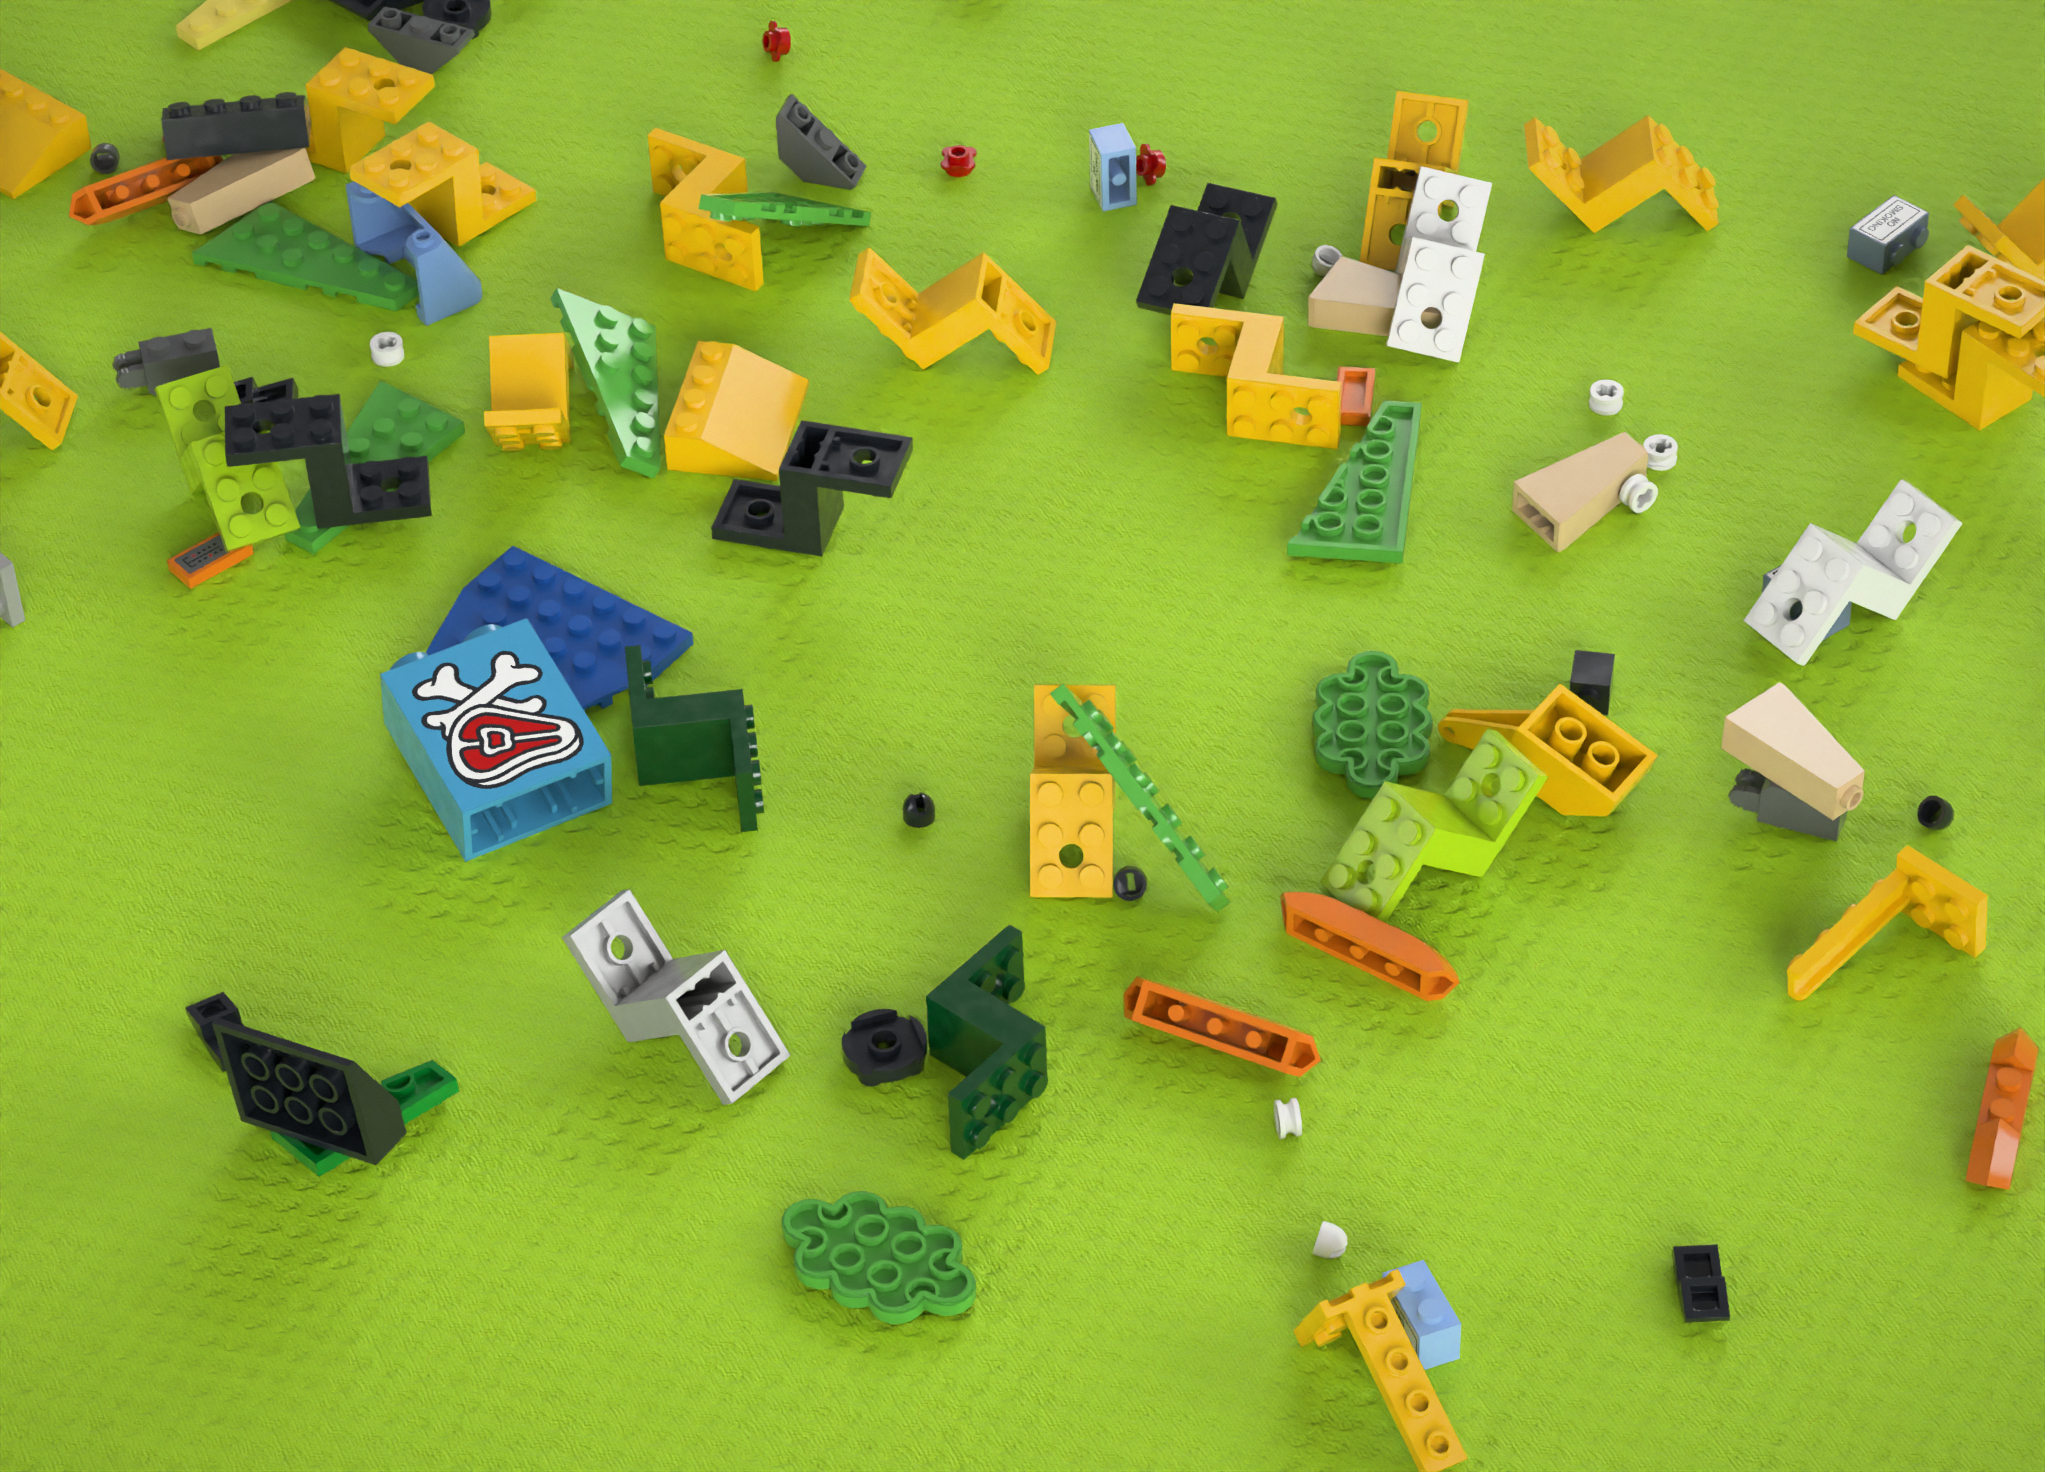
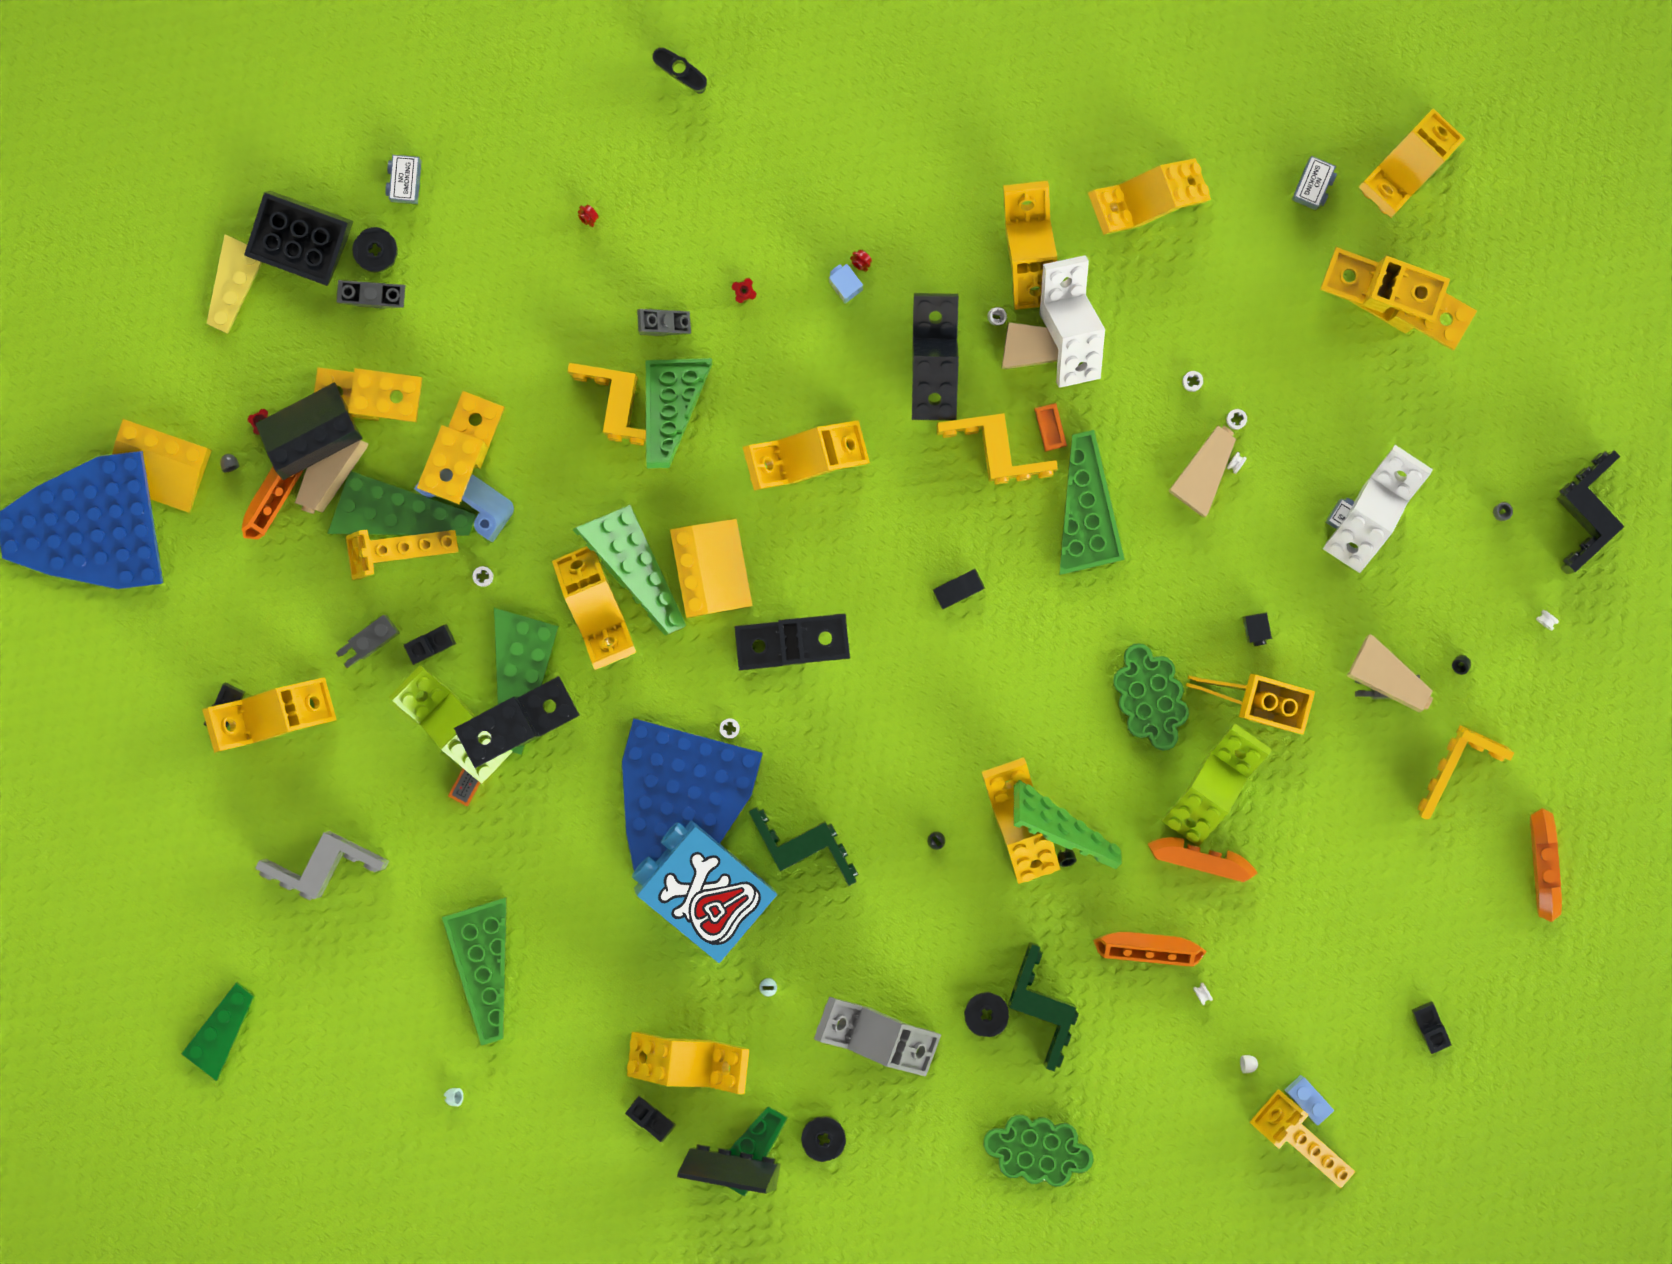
camera: 25 degrees left, 45 degrees up
(81, 756) = (479, 952): none -> bright green wing
(282, 261) = (365, 552): none -> yellow bracket
(330, 942) = (688, 1062): none -> yellow bracket
(506, 1154) = (829, 1150): none -> black plate
(529, 917) = (768, 982): none -> light aqua hinge
(657, 596) = (735, 724): none -> white bush
(1123, 524) = (958, 589): none -> black slope

